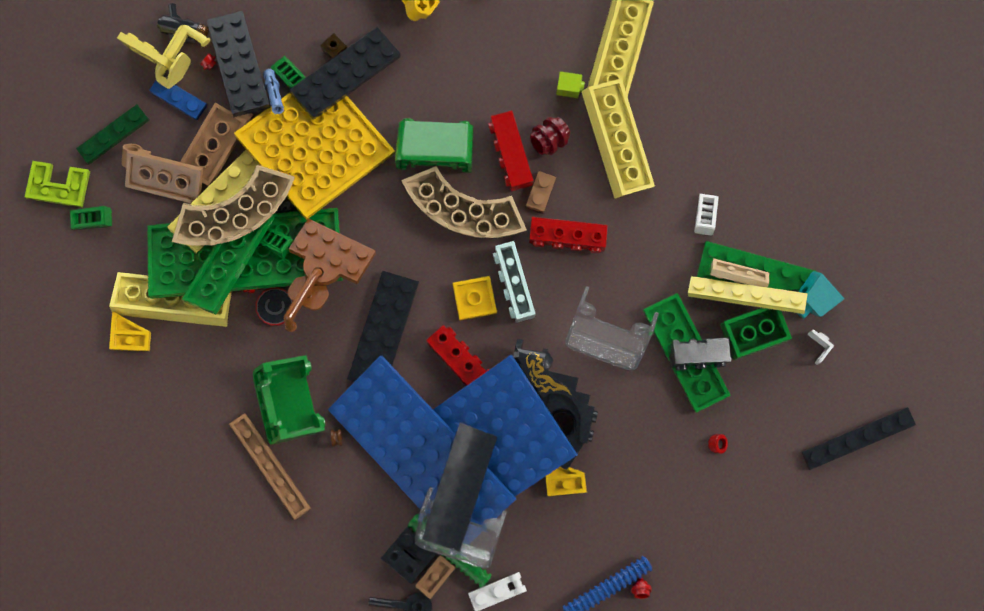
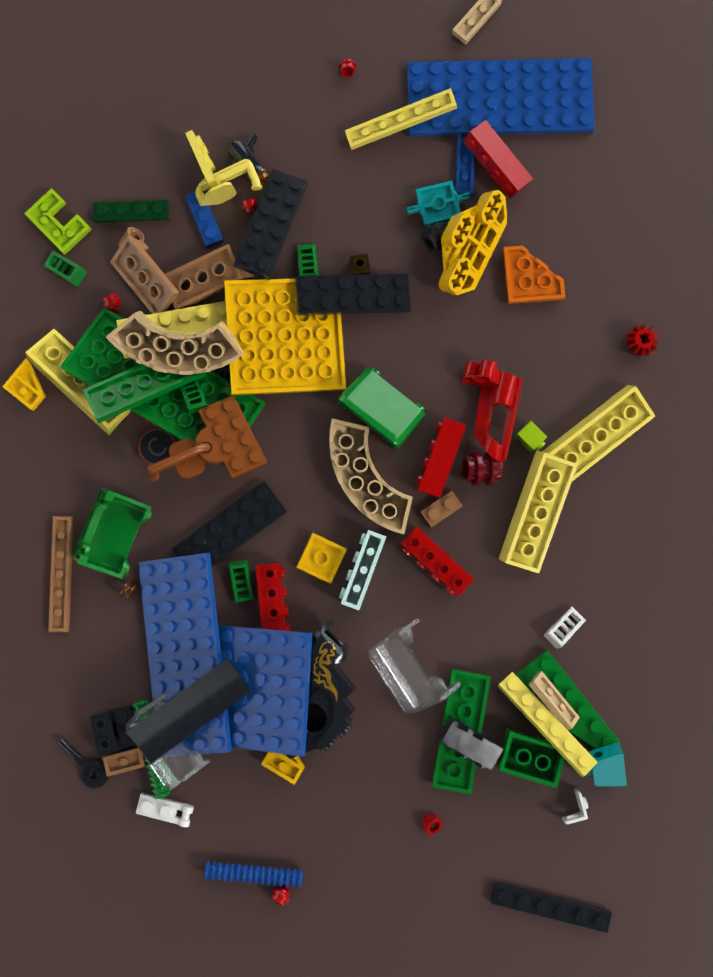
camera: 40 degrees right, 5 degrees up
(151, 217) = (112, 302): none -> red plate
(272, 87) = (275, 281): medium blue pin -> none
(407, 357) = (240, 564): none -> green slope
(514, 67) = (496, 389): none -> red panel

